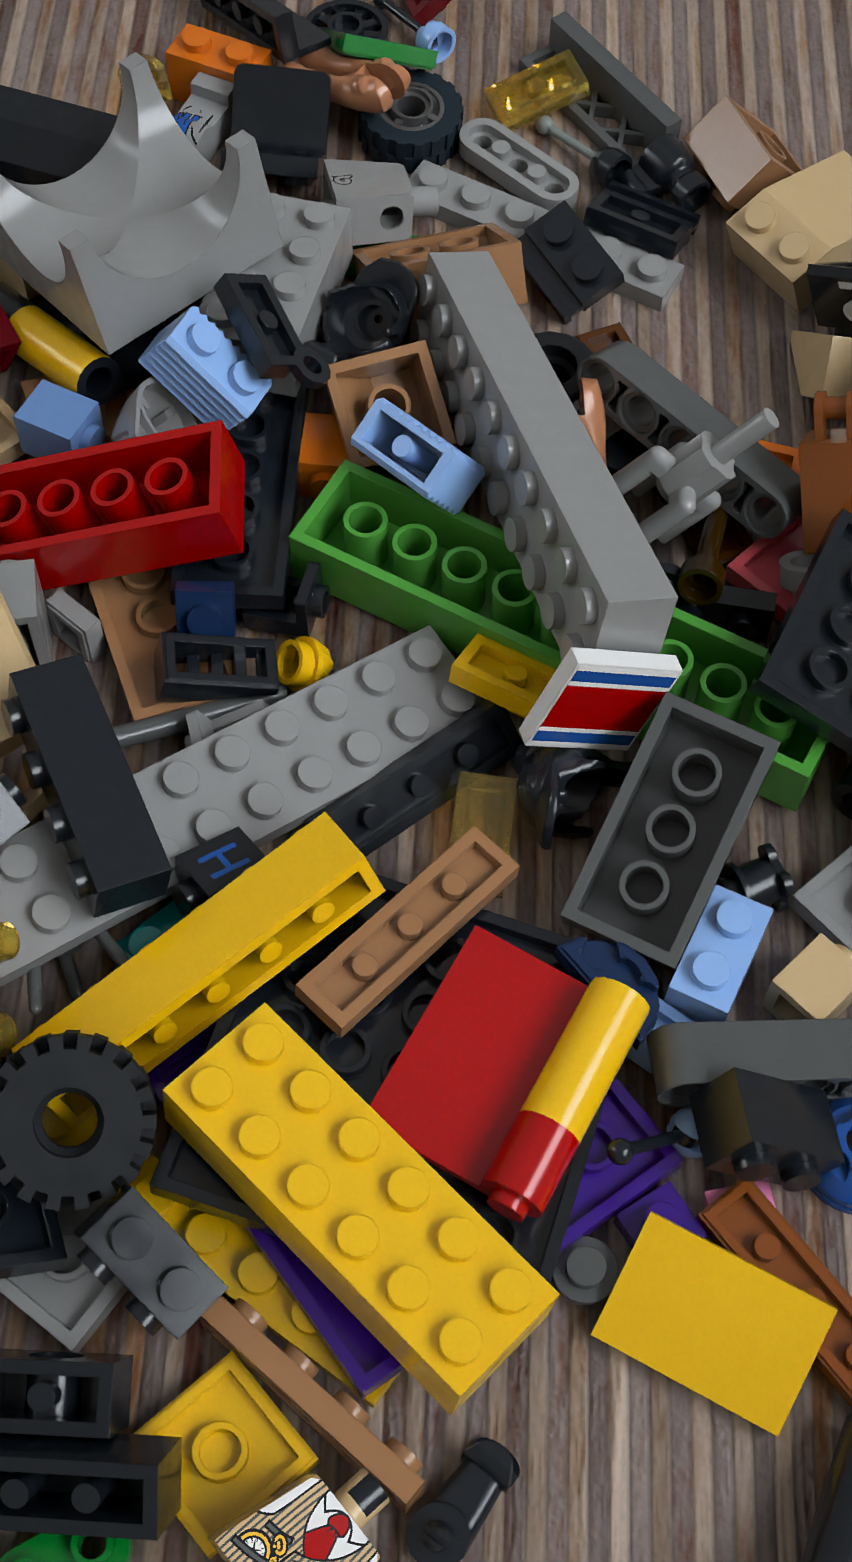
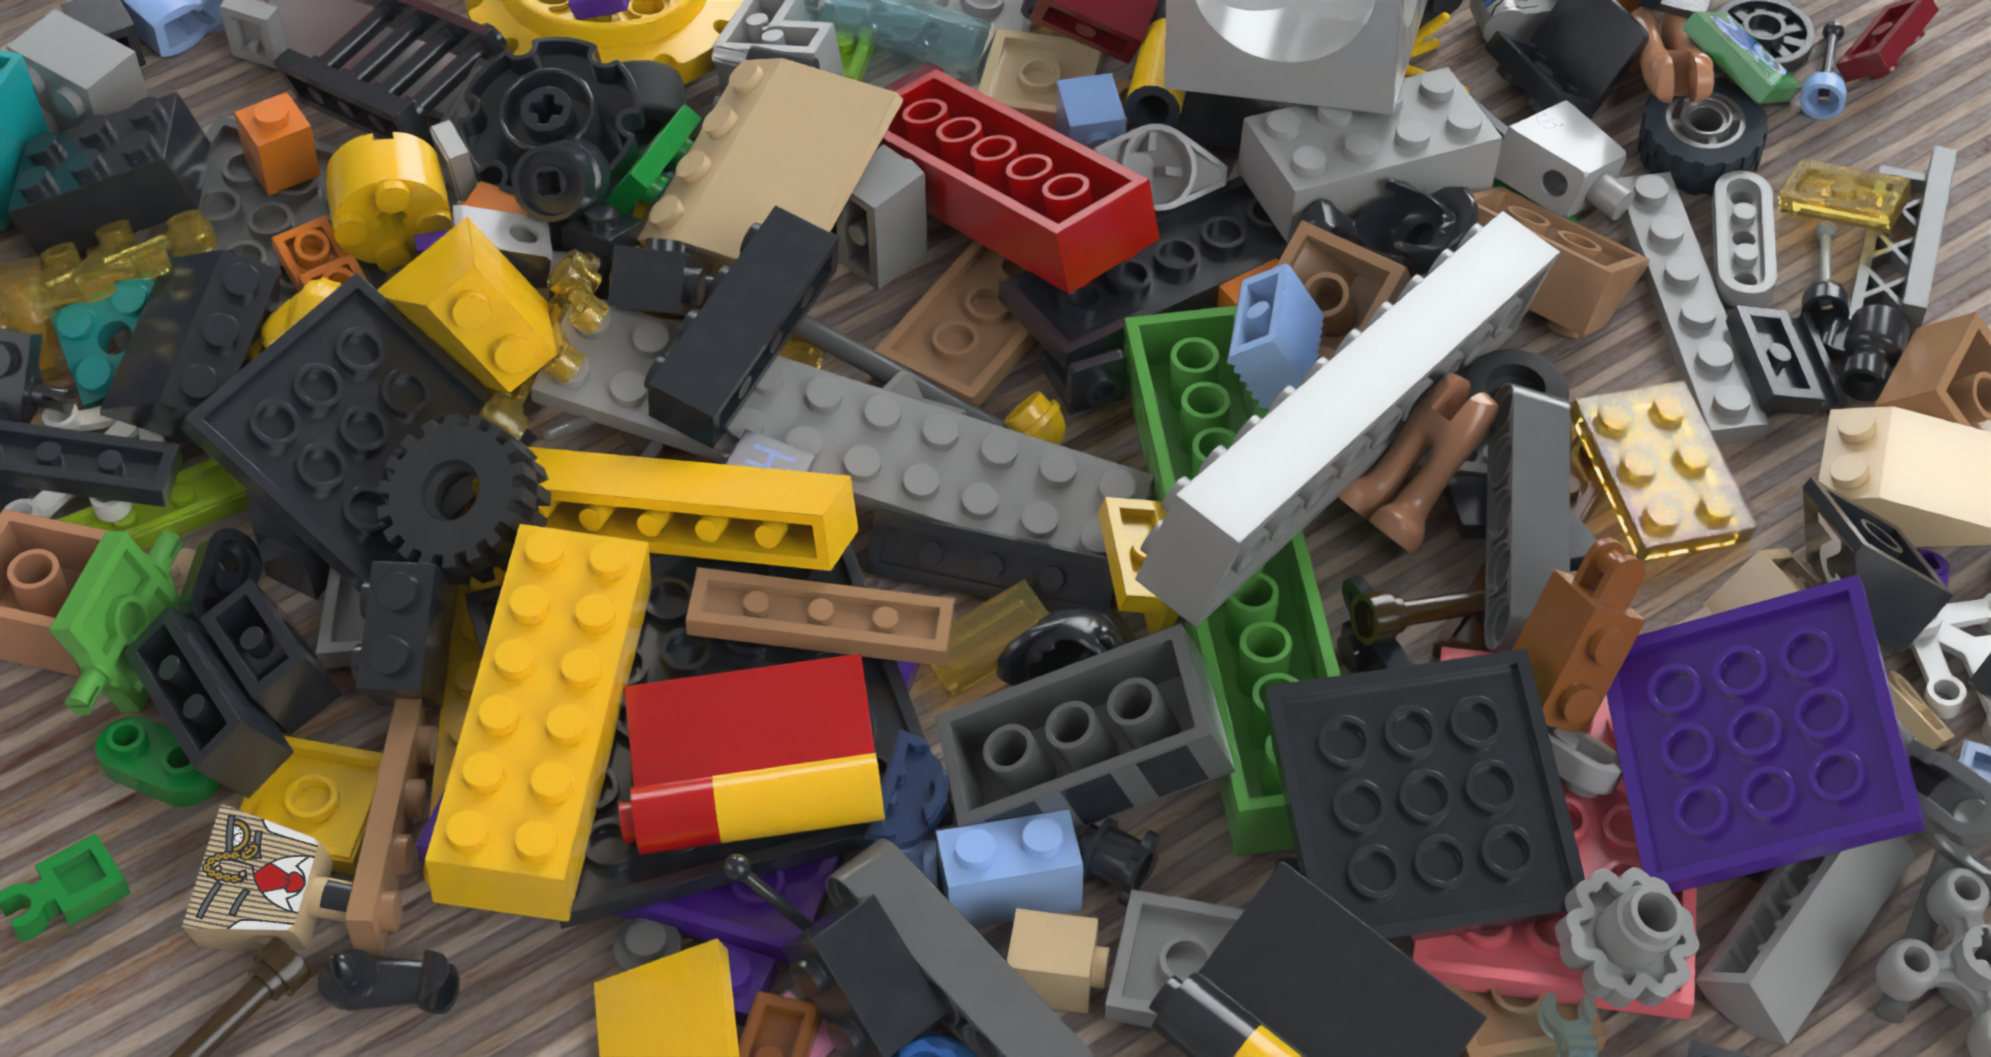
camera: 55 degrees right, 10 degrees down
(76, 626) = (926, 257): light grey tile -> none
(205, 370) = (1213, 153): light blue brick -> none
(206, 607) = (1005, 318): dark blue plate -> none
(214, 685) = (955, 325): black slope -> none
(267, 331) = (1278, 155): black hinge -> none
(567, 262) = (1660, 333): black plate -> none
(599, 699) = (1137, 585): tile -> none
(689, 342) = (1662, 470): none -> clear yellow plate
(690, 475) = (1458, 535): light grey plant -> none

